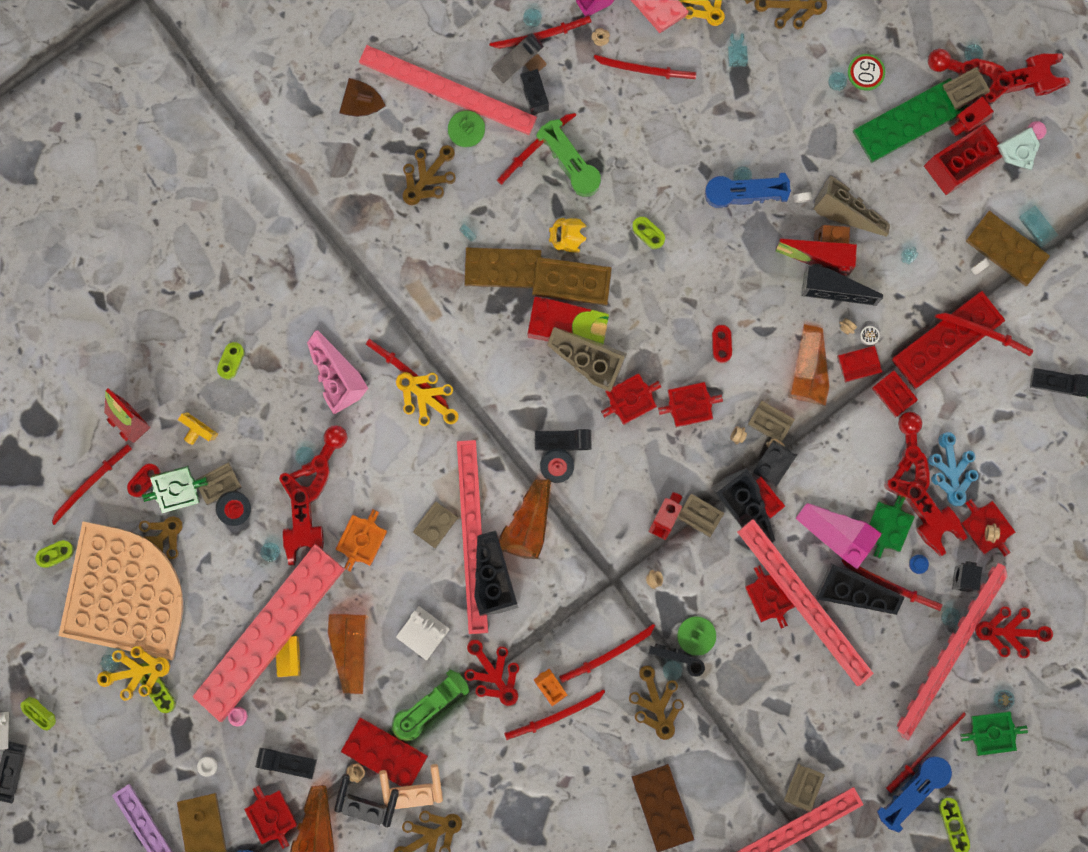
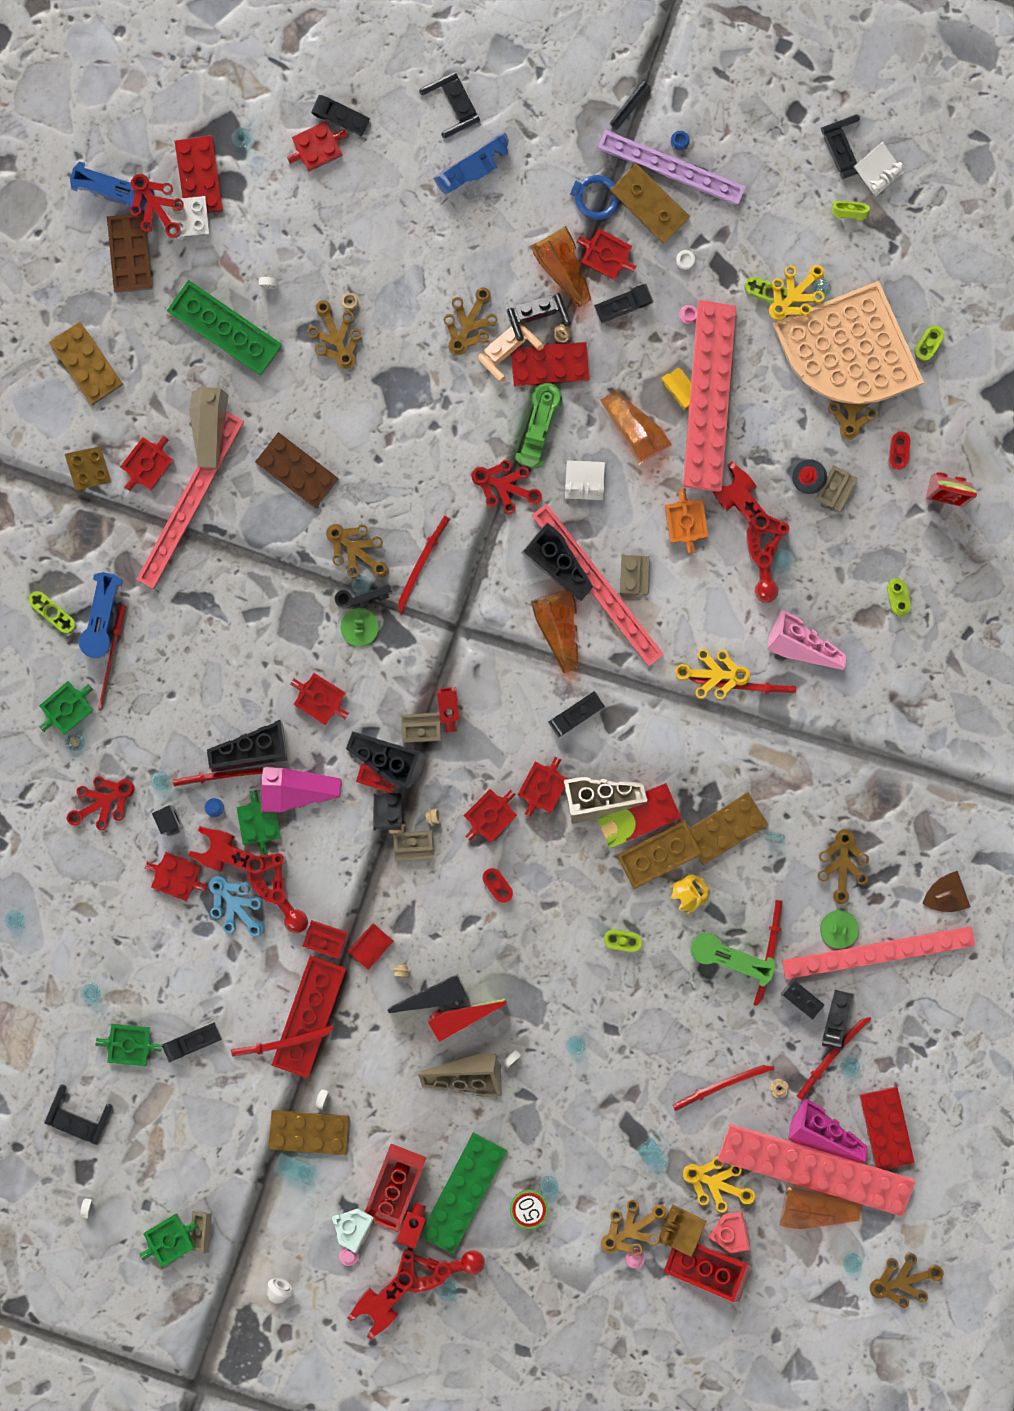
camera: 145 degrees right, 5 degrees up
(107, 465) = (942, 420): red sword -> none
(175, 489) = (868, 459): plate -> none
(197, 429) = (886, 521): yellow tile -> none
(266, 547) = (756, 456): clear light blue plate -> none
(533, 726) = (431, 484): red sword -> none
(536, 63) = (818, 1027): medium nougat sticker -> none
(550, 687) = (451, 504): orange tile -> none
(557, 465) = (567, 689): black wheel -> none
(654, 579) = (424, 649): tan plate -> none
(722, 191) = (582, 1017): blue piece -> none
(804, 788) = (192, 561): dark tan plate -> none
(805, 602) = (288, 711): coral plate -> none
(810, 372) = (408, 913): clear orange wedge -> none
(833, 234) = (463, 1039): dark orange torso -> none
(869, 336) = (377, 976): white tile -> none
(909, 255) = (388, 1069): clear light blue plate -> none
(948, 657) = (141, 756): coral plate -> none
(966, 88) = (433, 1249): dark tan plate -> none
(992, 533) = (170, 871): tan plate -> none

